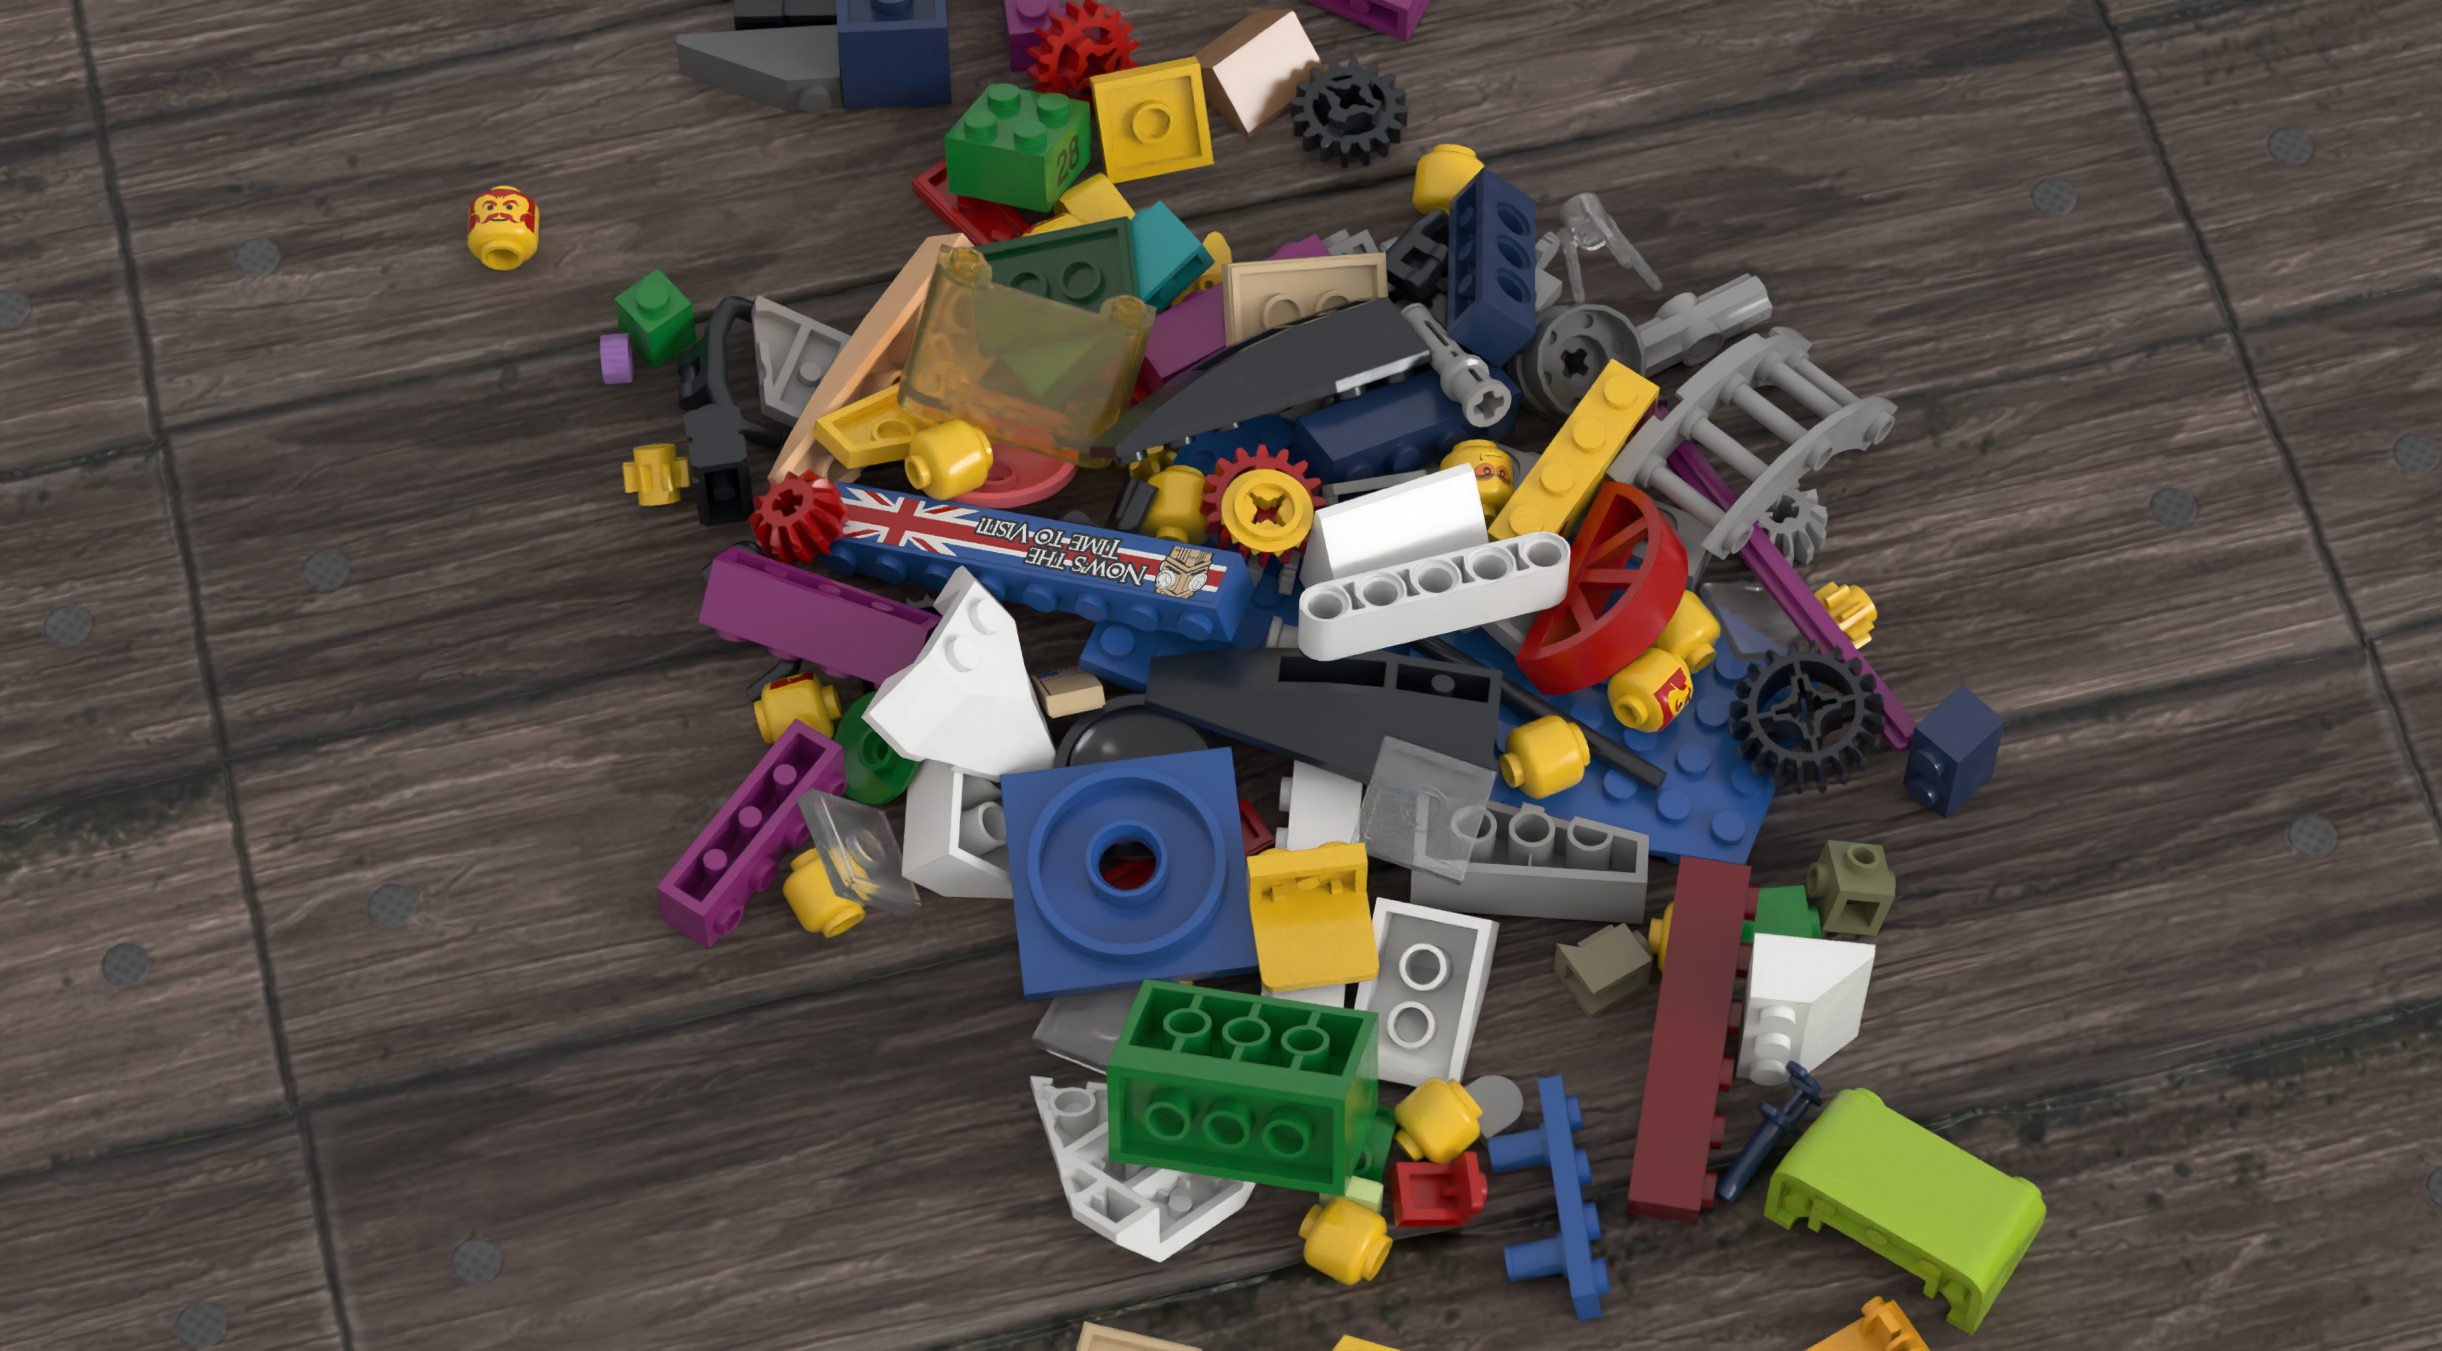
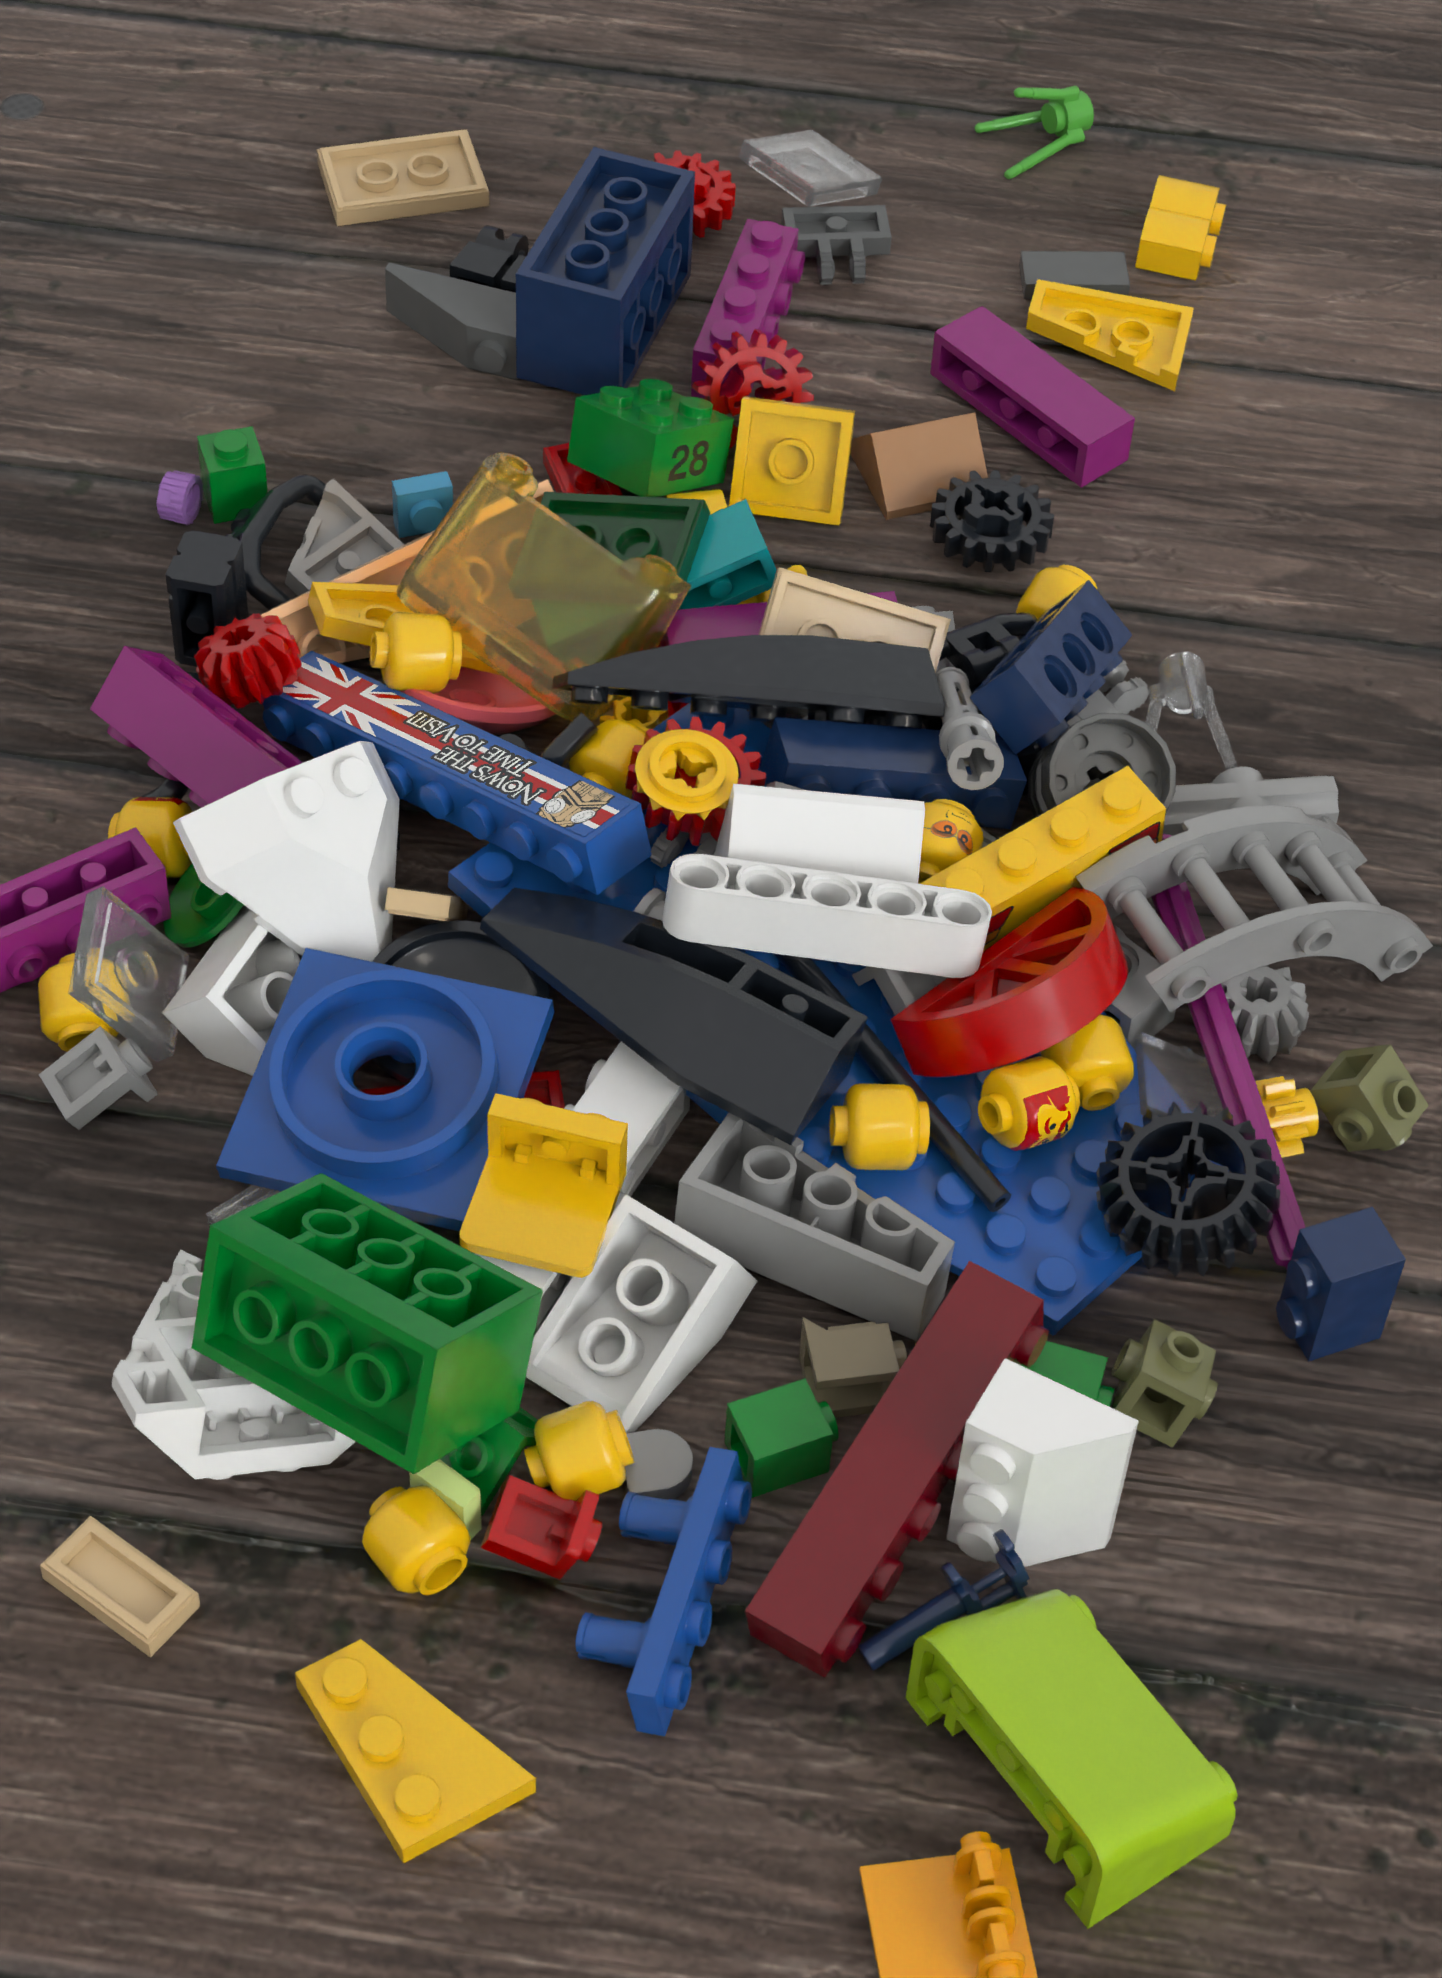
camera: 20 degrees right, 10 degrees down
(503, 228) = (145, 366): yellow head -> none
(656, 474) = (145, 596): yellow gear -> none
(841, 285) = (421, 503): none -> dark azure plate
(875, 952) = (96, 1076): none -> light grey bracket
(1423, 810) = (714, 1121): clear tile -> none
(1579, 1045) = (781, 1436): none -> green brick
(1907, 574) = (1369, 1098): none -> olive brick

